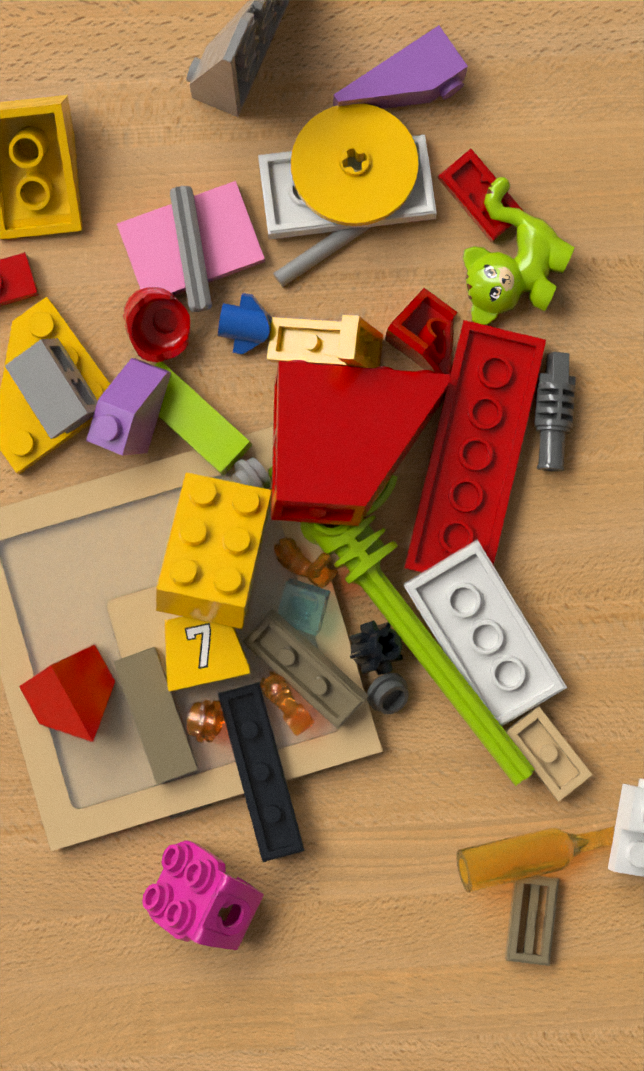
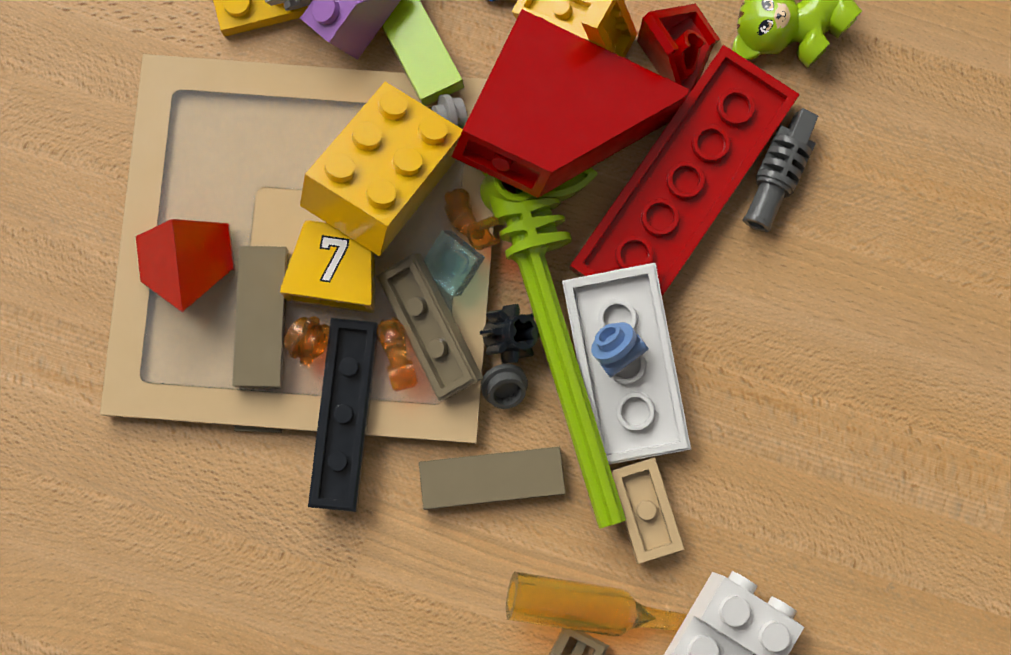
camera: 25 degrees right, 5 degrees down
(194, 891) = (221, 511): dark pink piece -> none
(406, 775) = (491, 478): none -> dark tan tile
(473, 627) = (617, 347): none -> medium blue plate

